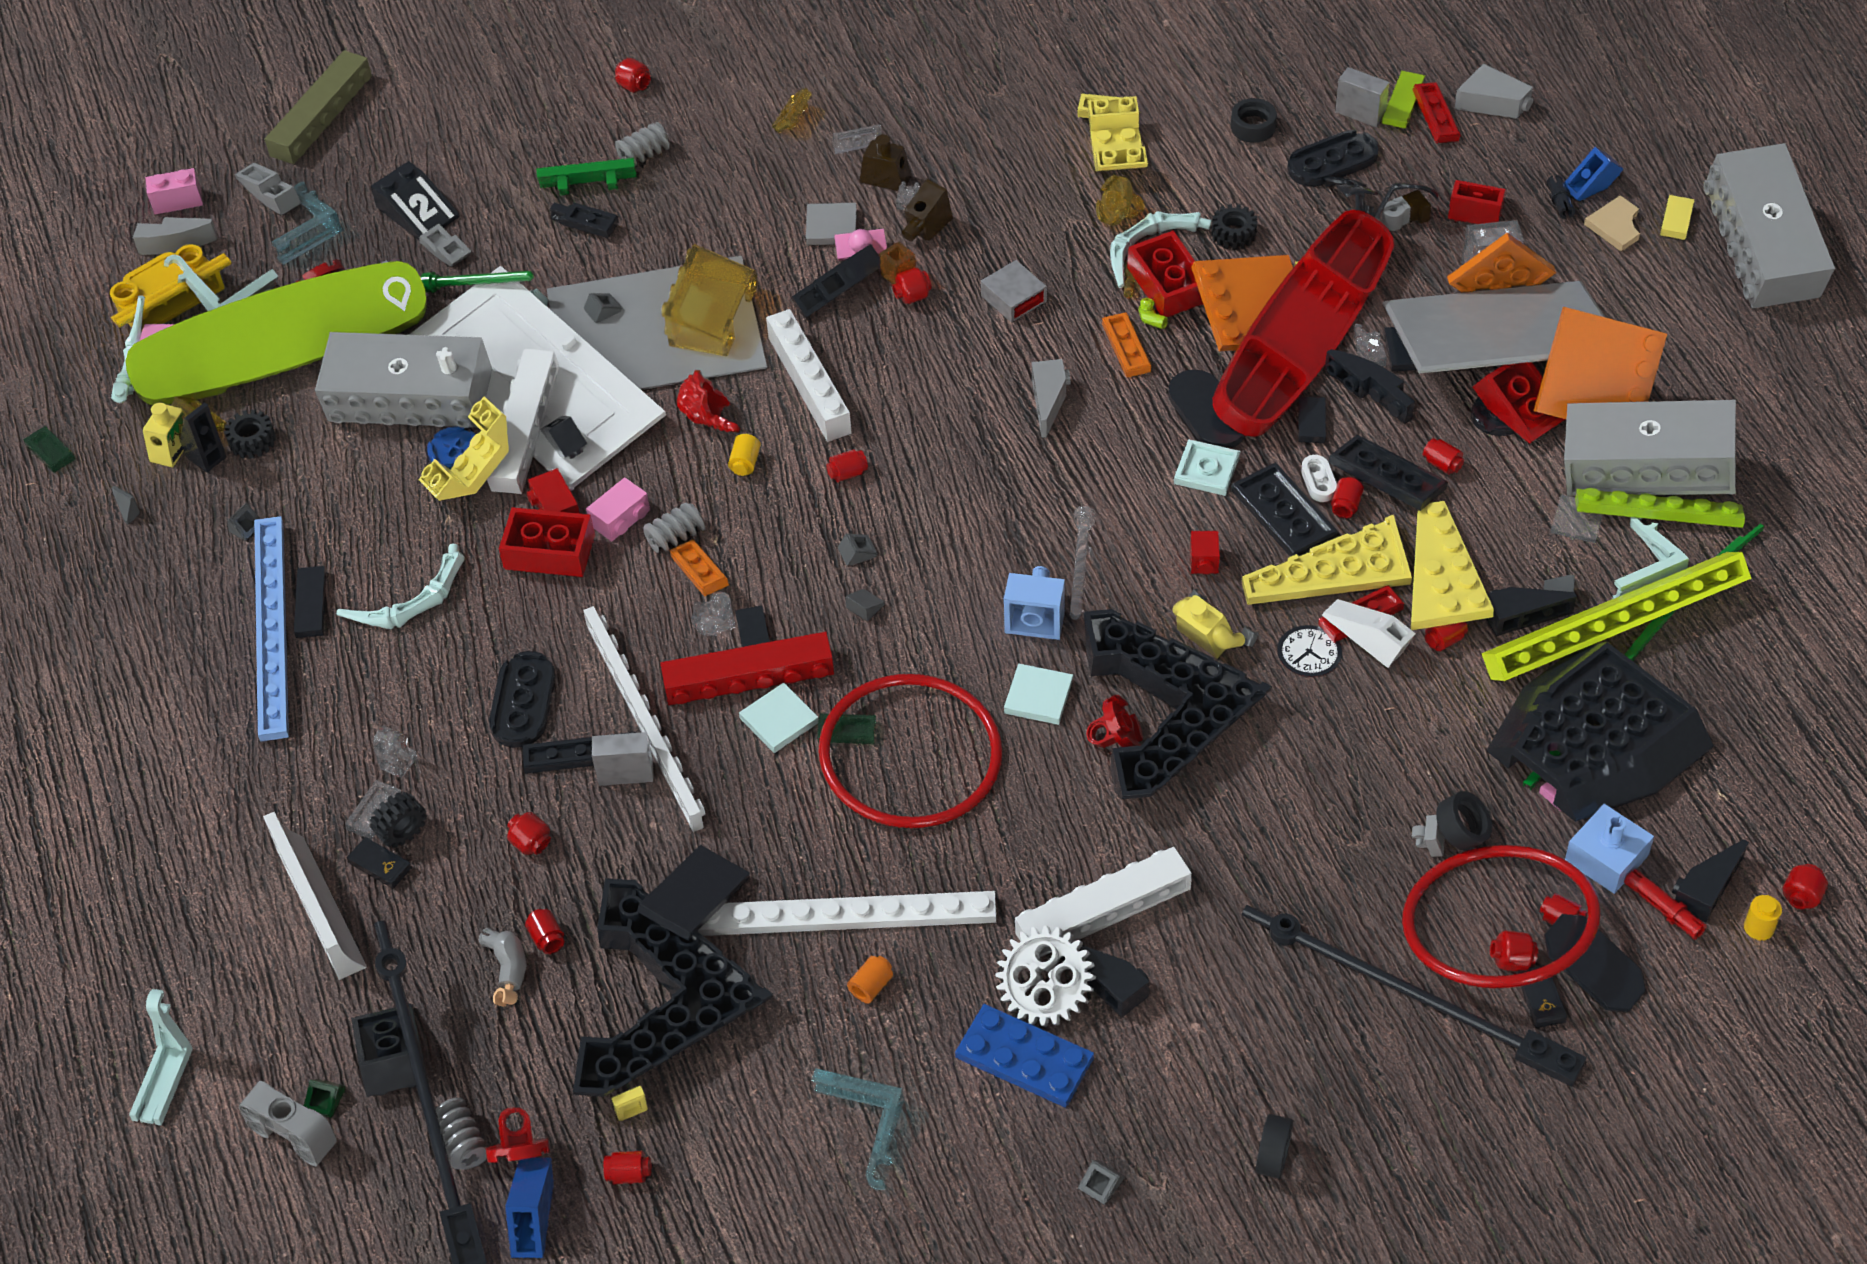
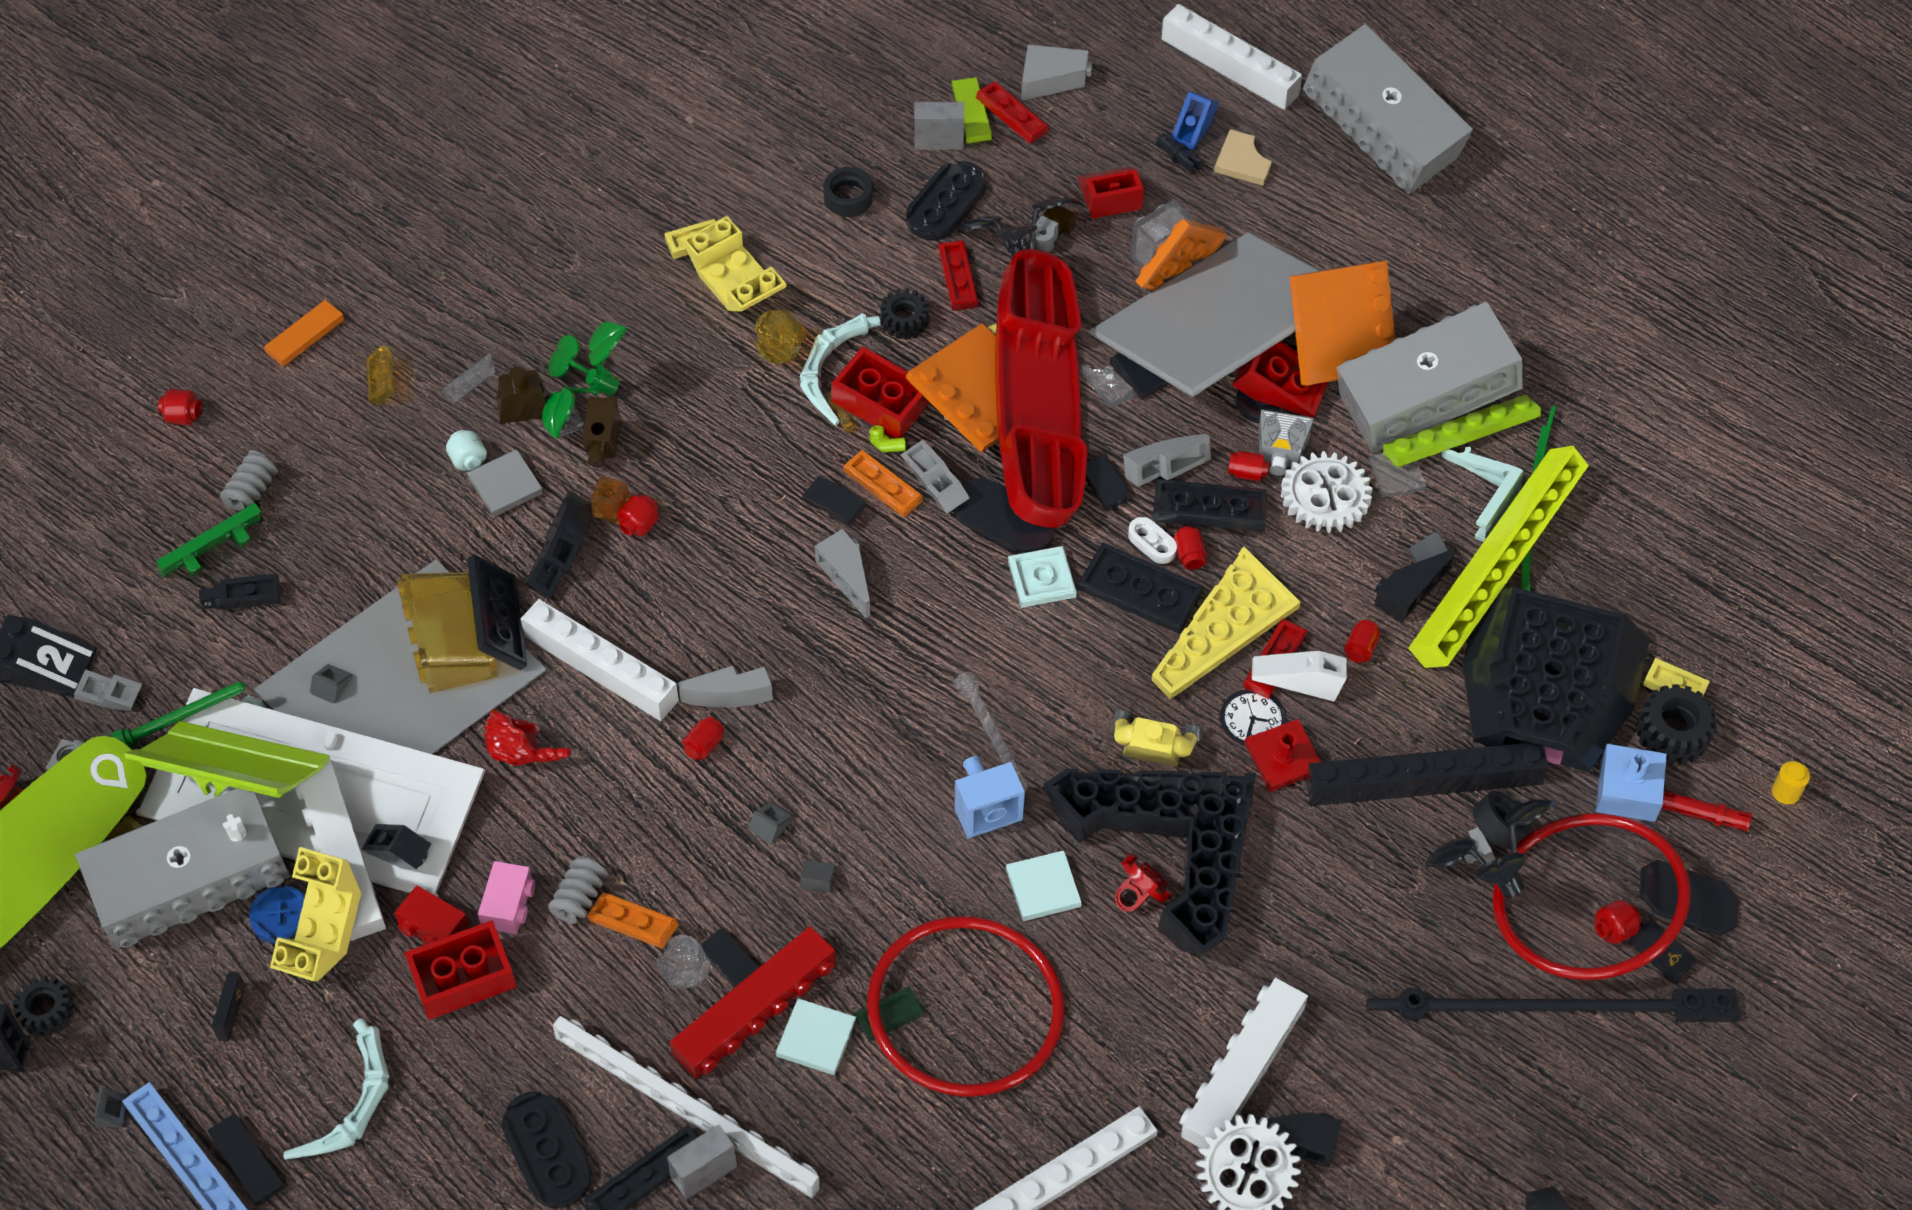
camera: 35 degrees left, 5 degrees up
(371, 492) = (228, 1006): none -> black tile
(482, 318) = (230, 760): none -> lime hinge
(744, 454) = (593, 776): yellow brick -> none
(752, 300) = (496, 612): none -> black tile
(759, 61) = (304, 333): none -> orange tile
(816, 186) = (466, 450): none -> light aqua head
(851, 243) = (552, 493): bright pink tile -> none
(891, 437) = (727, 689): none -> light grey slope
(952, 176) = (599, 380): none -> green plant
(1013, 291) = (739, 476): flat silver piece -> none
(1076, 339) = (836, 500): none -> black slope
(1169, 355) = (935, 476): none -> light grey slope
(1204, 552) = (1101, 666): red brick -> none
(1301, 217) = (958, 275): none -> red tile
(1313, 689) = (1282, 754): none -> red tile
(1366, 378) = (1126, 417): black slope -> none
(1376, 421) = (1166, 458): none -> light grey slope
(1426, 757) = (1426, 774): none -> black brick
(1433, 861) = (1504, 869): none -> black plant
(1444, 576) = (1331, 589): light yellow wing -> none
(1490, 449) = (1283, 439): none -> light grey torso
(1519, 511) = (1305, 498): none -> white gear
(1558, 905) = (1628, 862): red brick -> none
(1661, 139) = (1231, 56): none -> white brick
(1677, 217) = (1291, 130): light yellow tile -> none
(1692, 803) = (1679, 705): none -> black tyre
(1709, 880) = (1729, 776): black slope -> none
(1713, 791) = (1667, 674): none -> light yellow plate
(1805, 886) = (1803, 735): red head -> none

